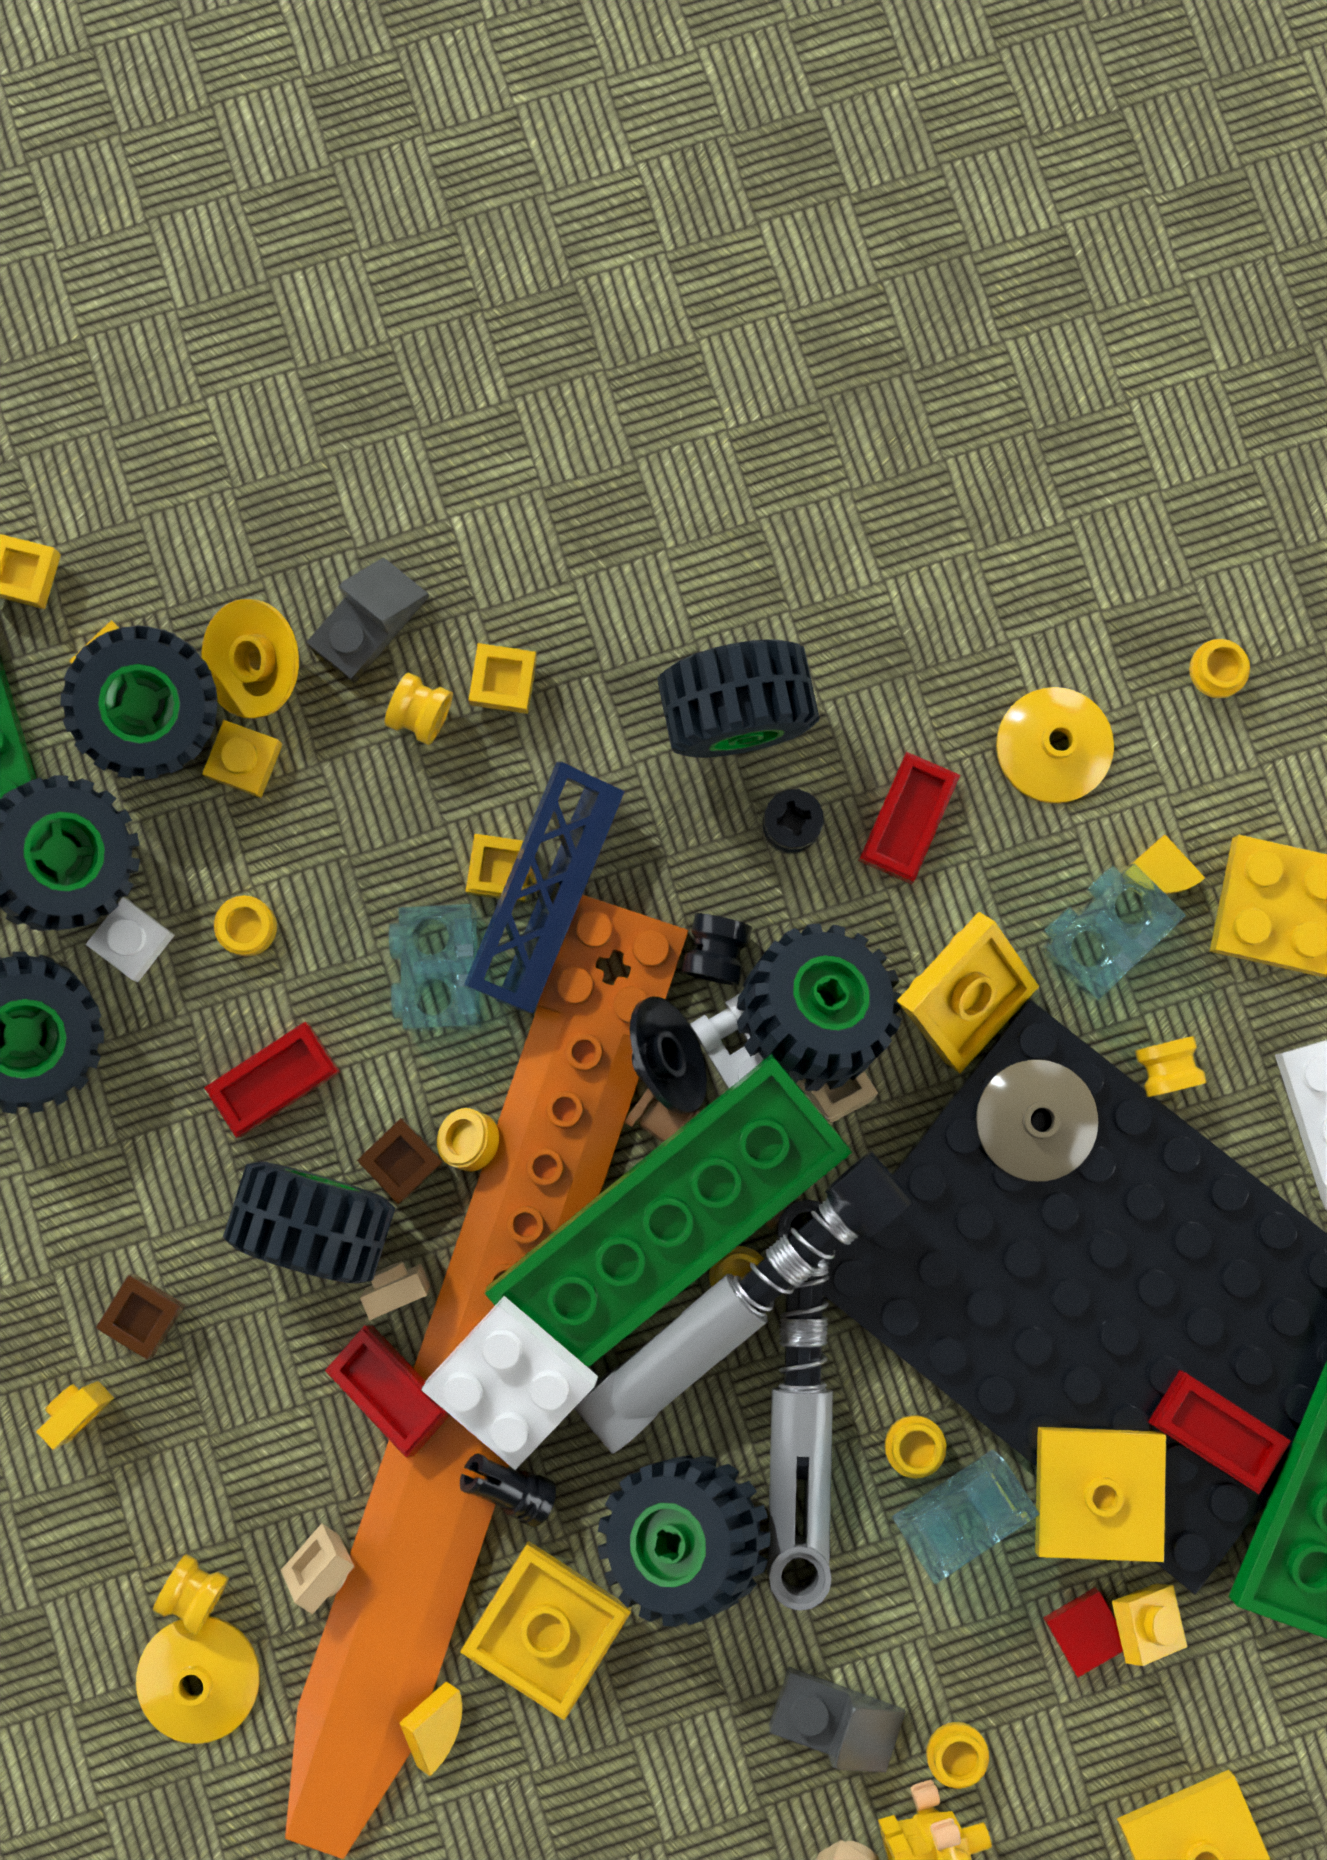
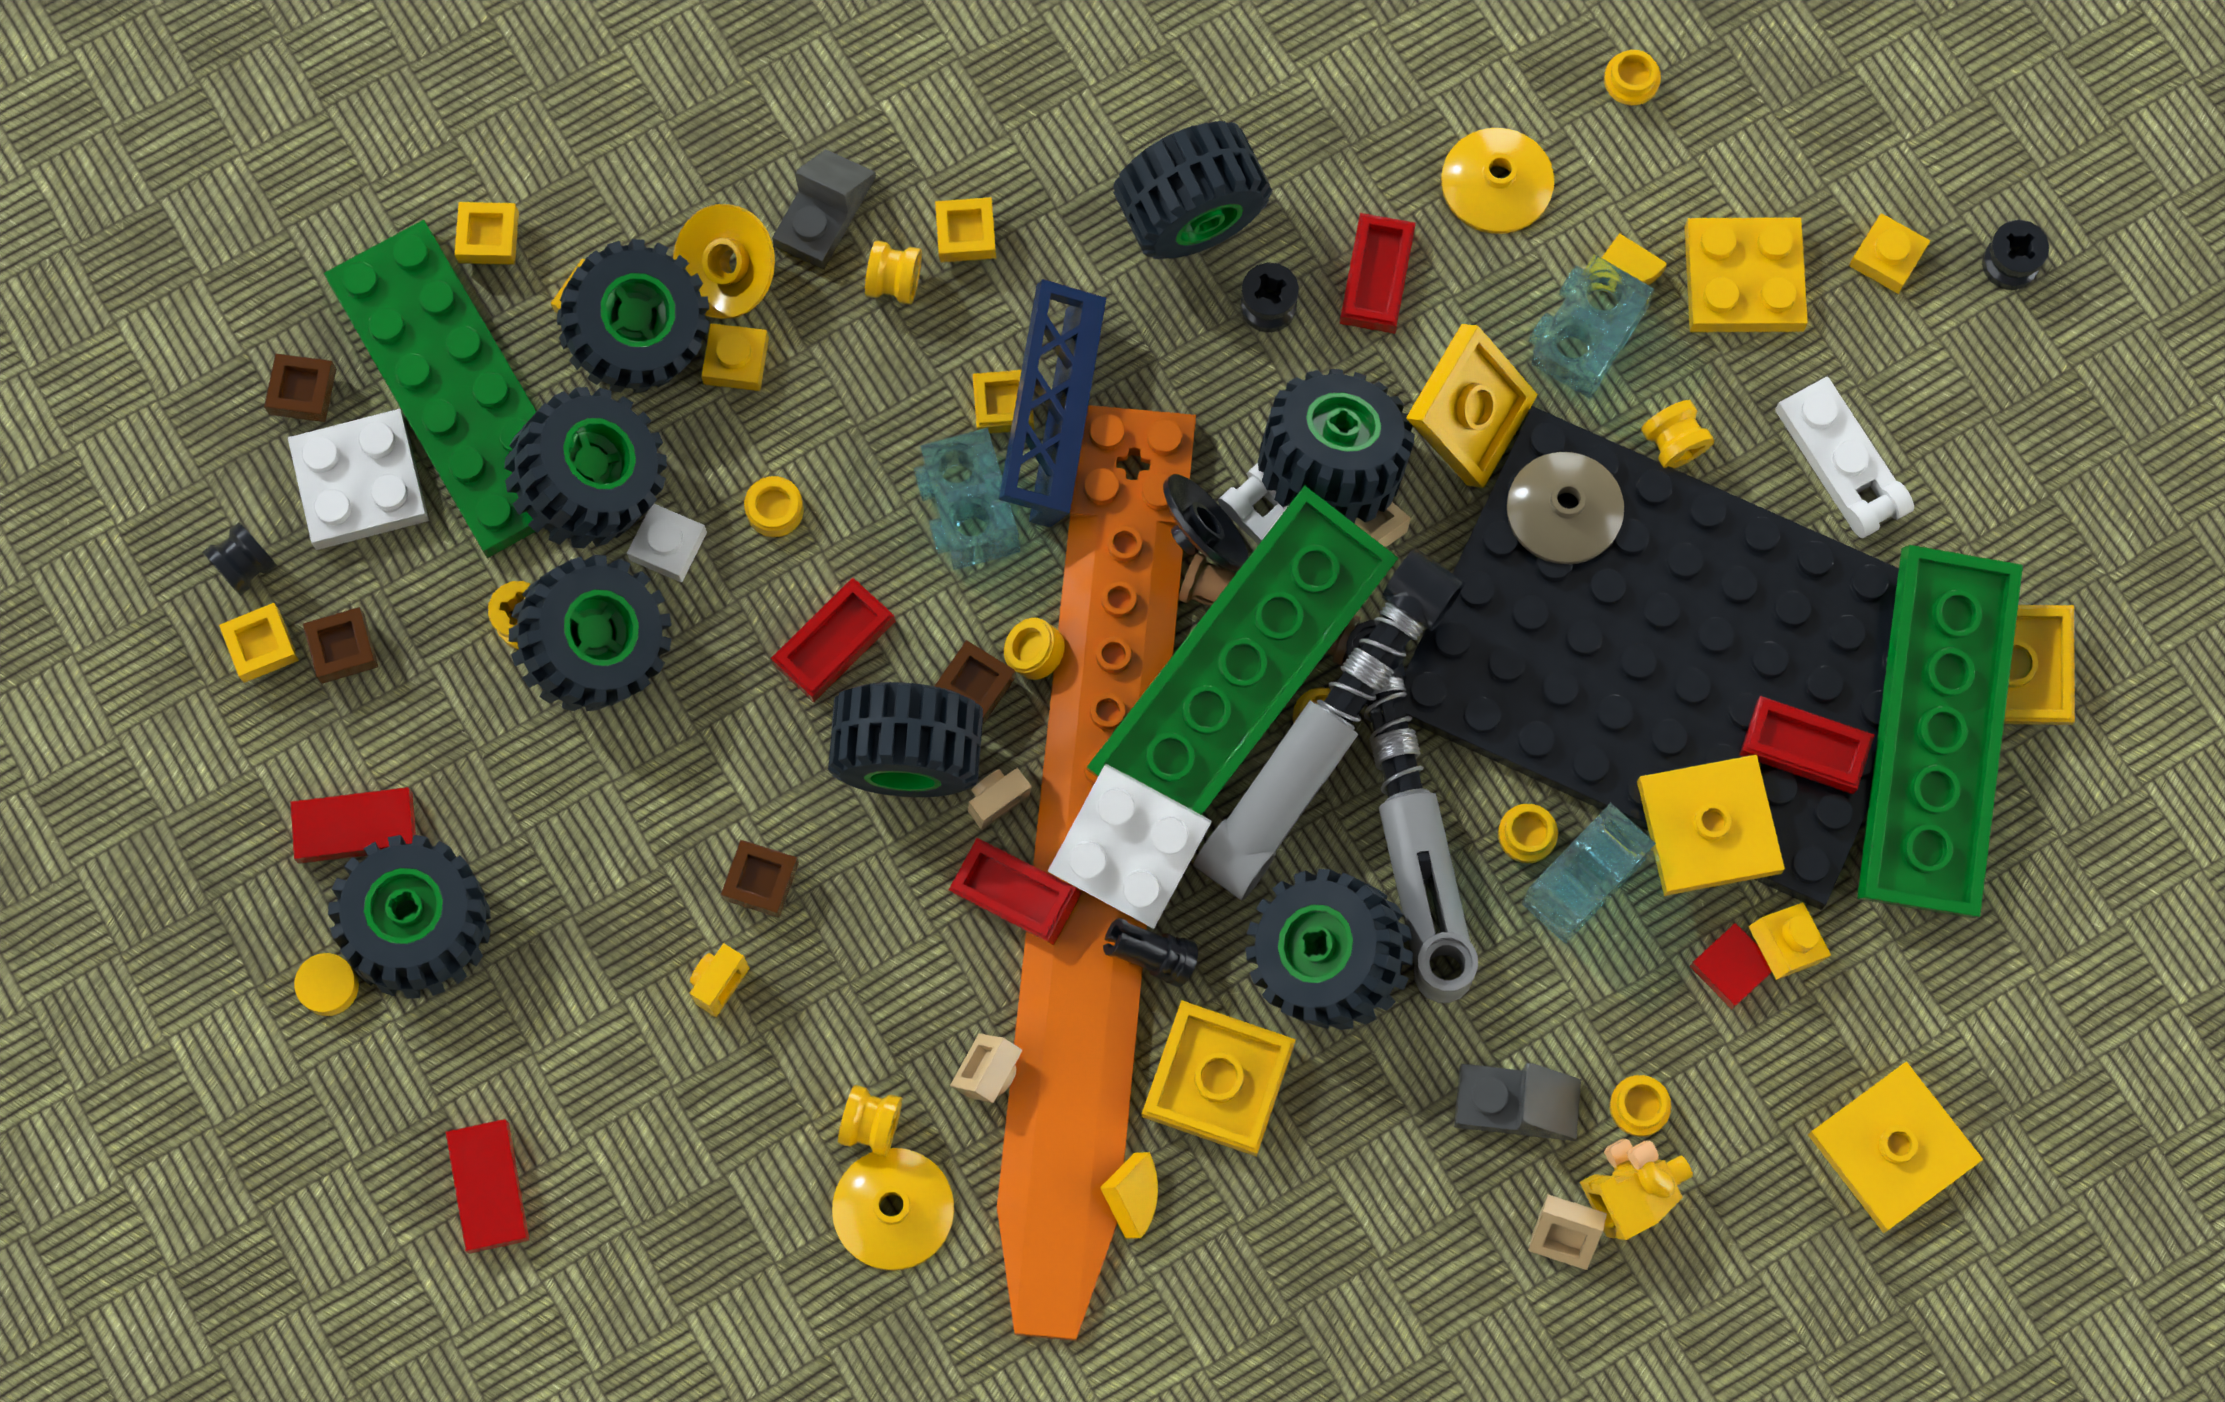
camera: 10 degrees left, 10 degrees down
(718, 945) = (1227, 424): black wheel -> none

